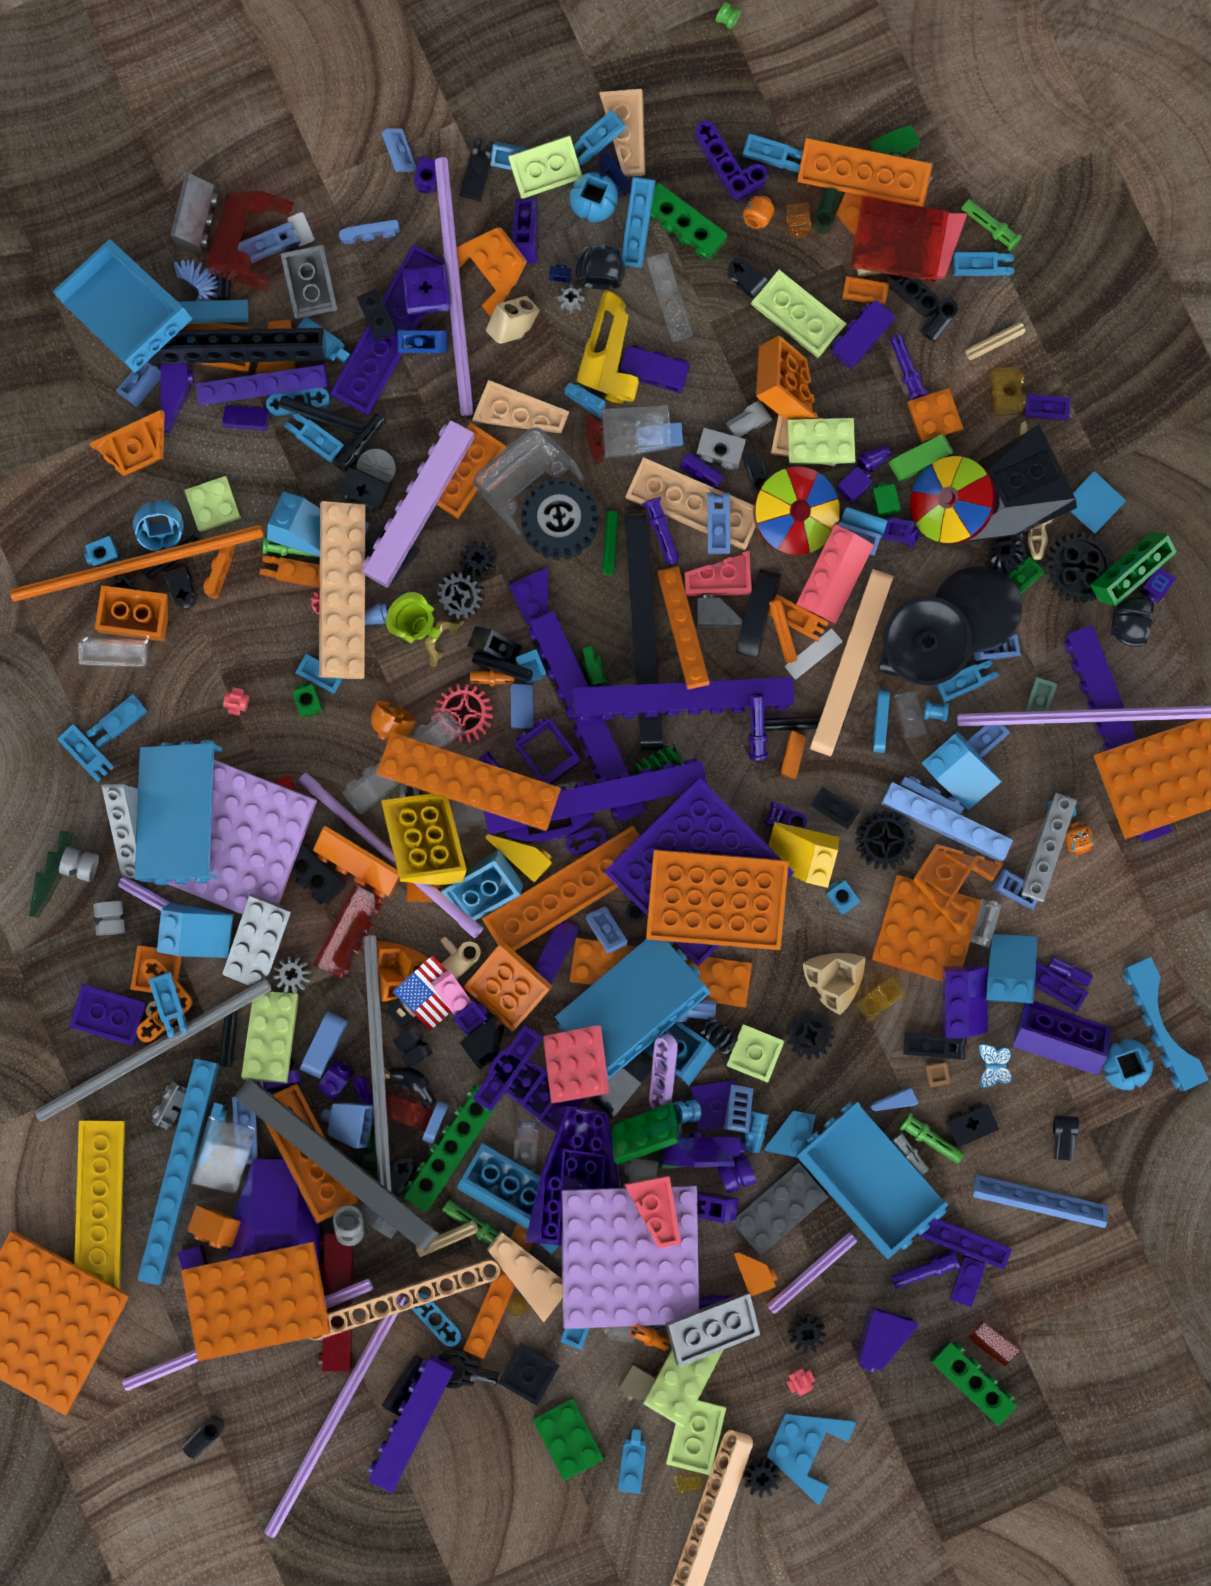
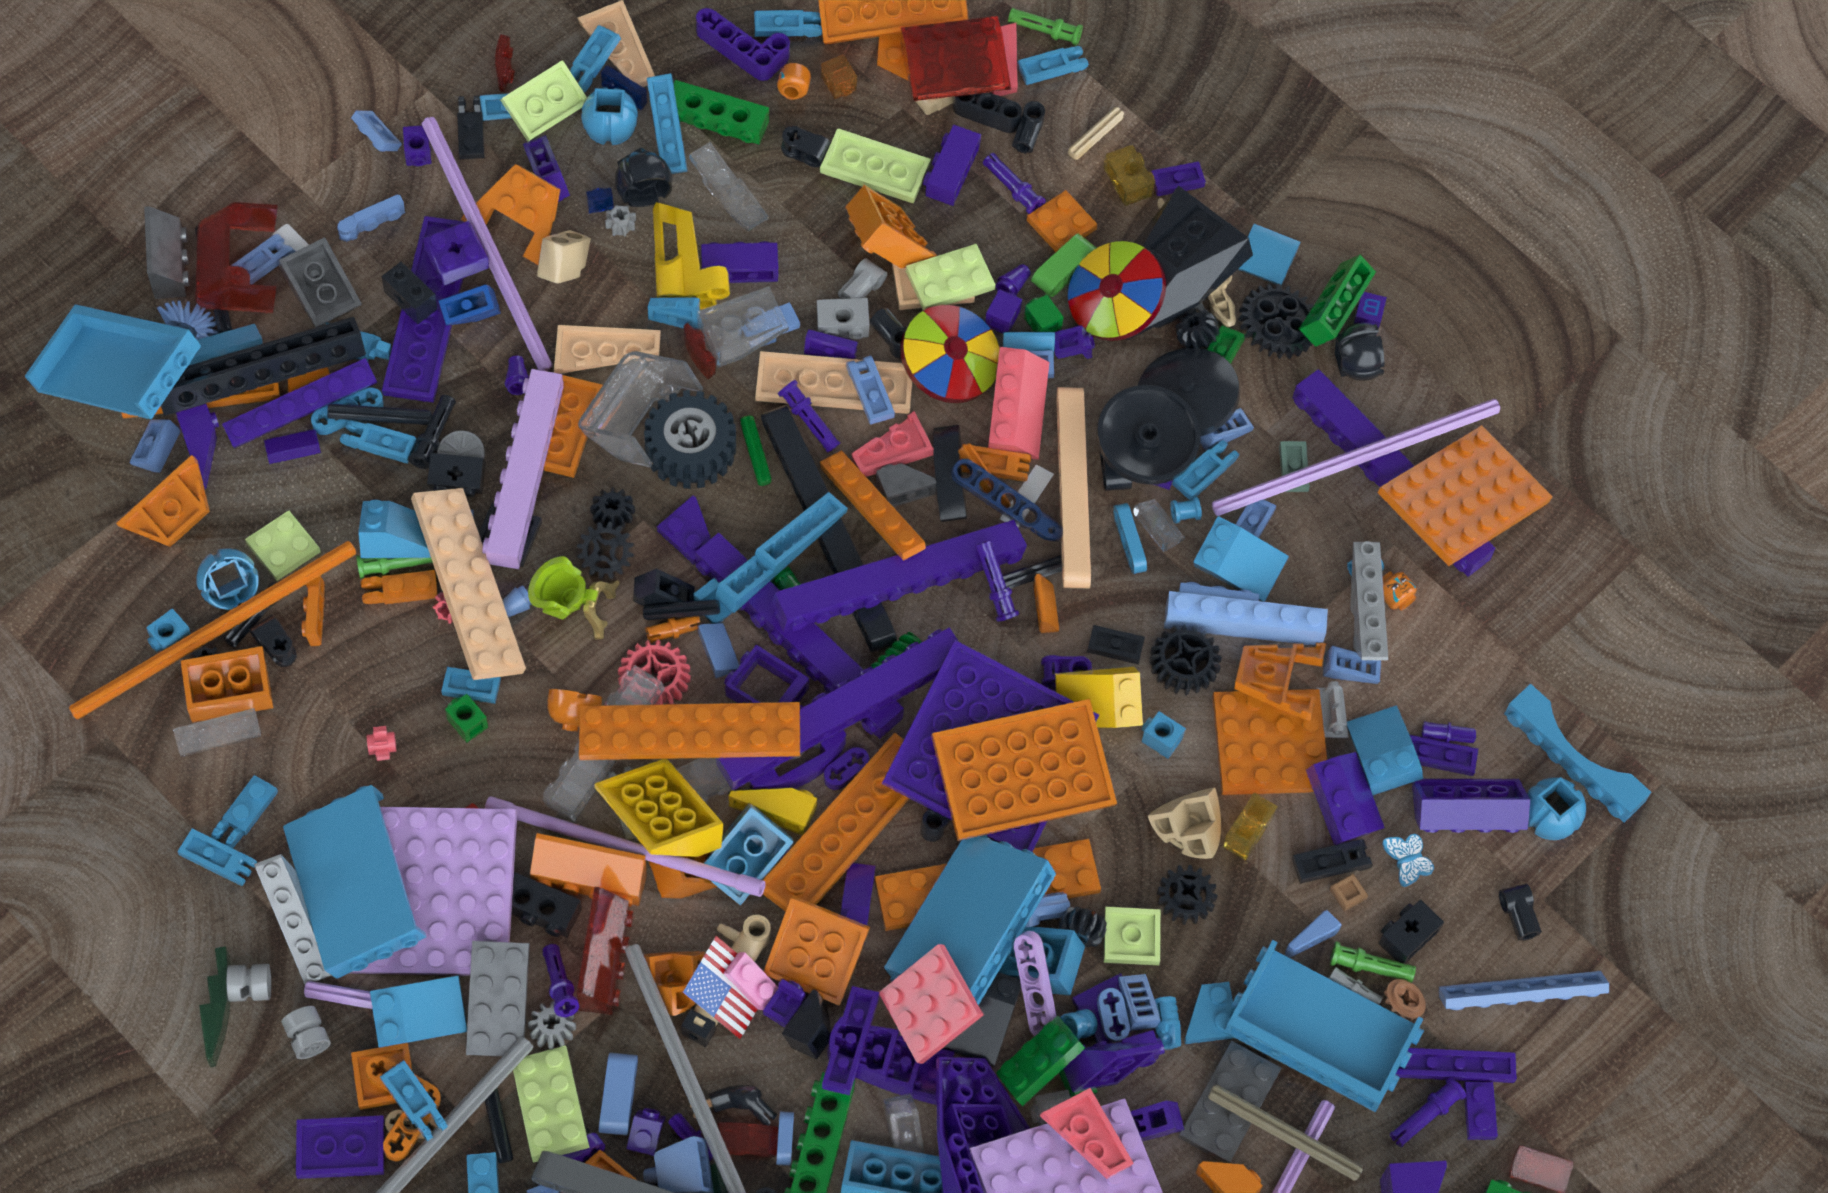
camera: 25 degrees left, 20 degrees down
(306, 950) = (561, 988): none -> dark purple pin
(412, 1046) = (725, 1057): black wheel -> none
(441, 413) = (515, 375): none -> dark purple cone
(521, 122) = (503, 65): none -> clear red slope
(596, 644) = (779, 552): none -> dark azure slope
(606, 929) = (907, 854): medium blue plate -> none
(720, 1114) = (1119, 1013): none -> medium blue beam
(736, 1175) = (1162, 1078): dark purple wheel -> none
(810, 1251) = (1285, 1132): none -> dark tan axle
(812, 686) = (1020, 503): none -> dark blue piece
(827, 209) = (866, 60): clear green piece -> none
(865, 290) = (936, 123): orange plate -> none
(952, 1175) = (1413, 997): none -> nougat gear

